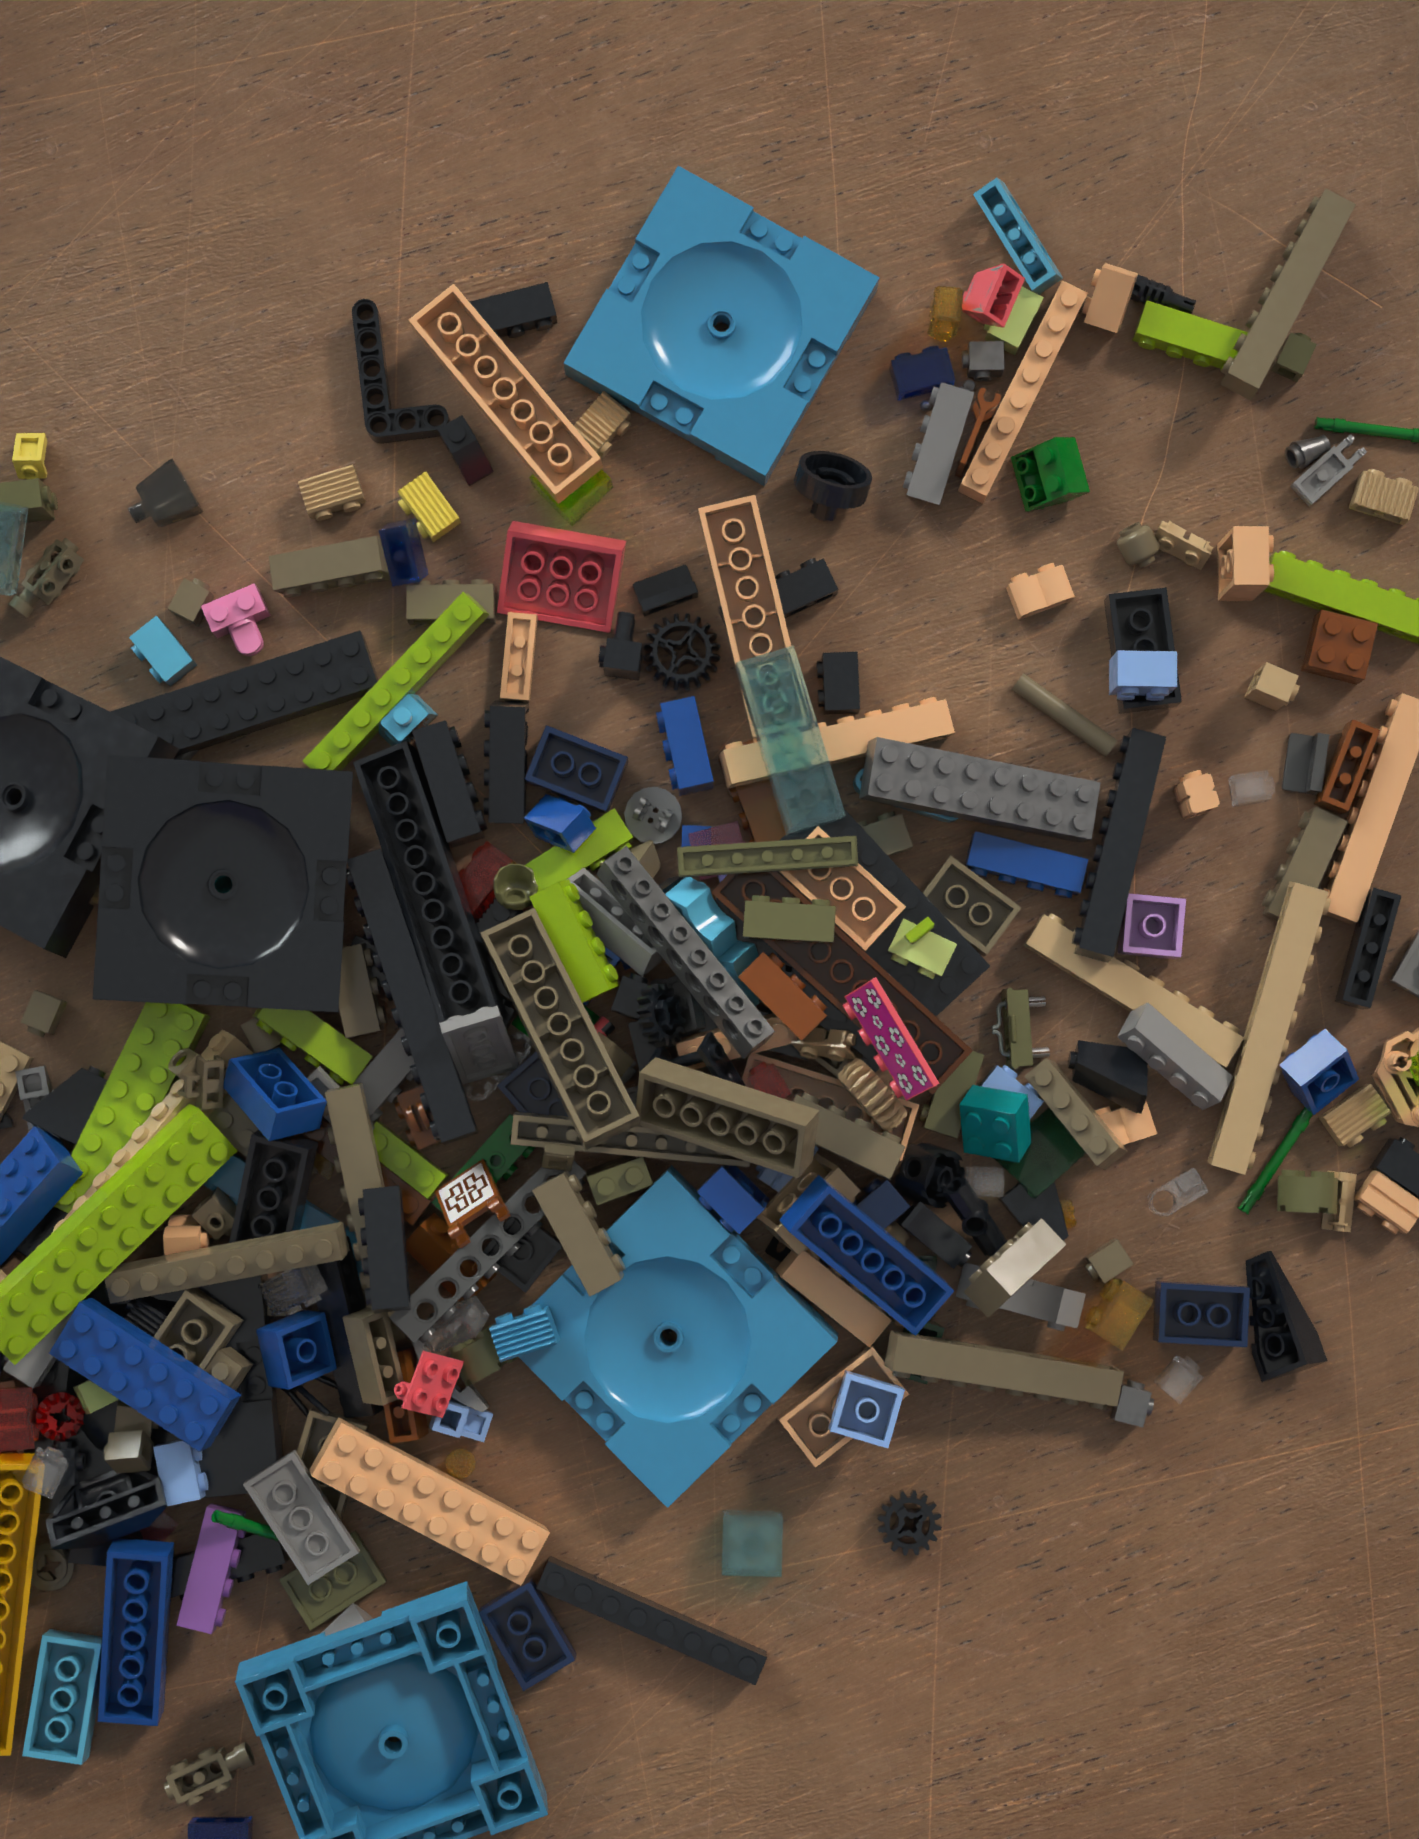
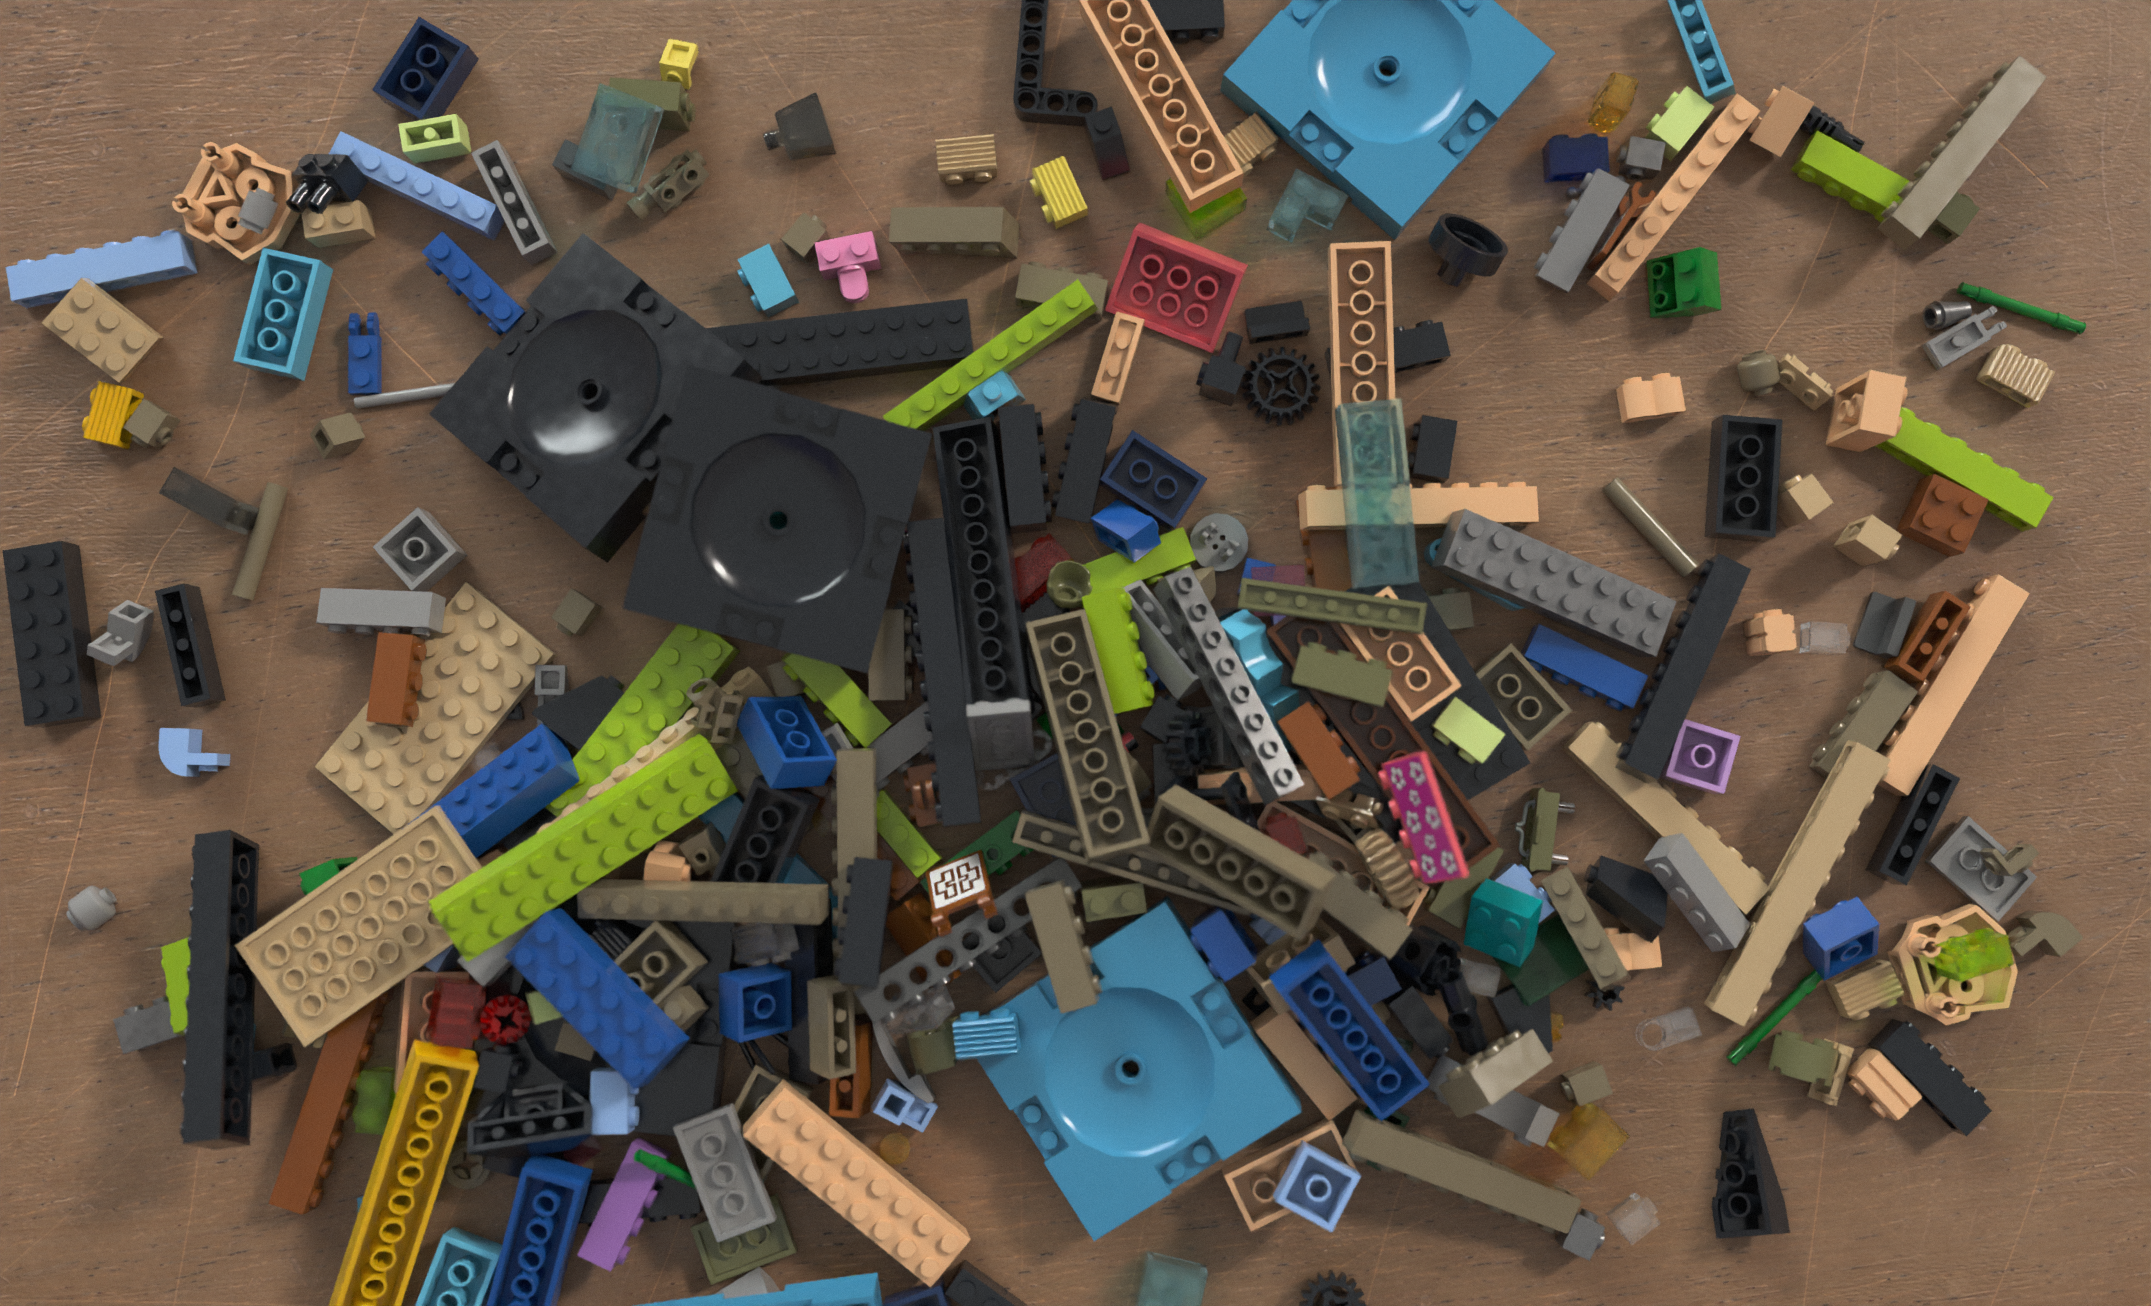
camera: 20 degrees right, 0 degrees up
(45, 1472) = (476, 1075): clear brick -> none
(129, 1451) = (566, 1070): dark tan brick -> none
(403, 552) = (1025, 230): clear blue brick -> none
(430, 1384) = (881, 1068): coral hinge -> none
(558, 1157) = (1057, 865): dark tan tile -> none
(667, 465) = (1306, 199): none -> clear light blue brick
(685, 746) = (1266, 479): blue brick -> none
(919, 930) = (1471, 712): lime tile -> none
(992, 295) = (1665, 93): coral torso -> none
(1110, 1177) = (1595, 993): none -> black gear
(1143, 674) = (1746, 500): light blue brick -> none
(1199, 660) = (1801, 499): none -> tan brick
(1201, 1314) = (1671, 1158): dark blue brick -> none

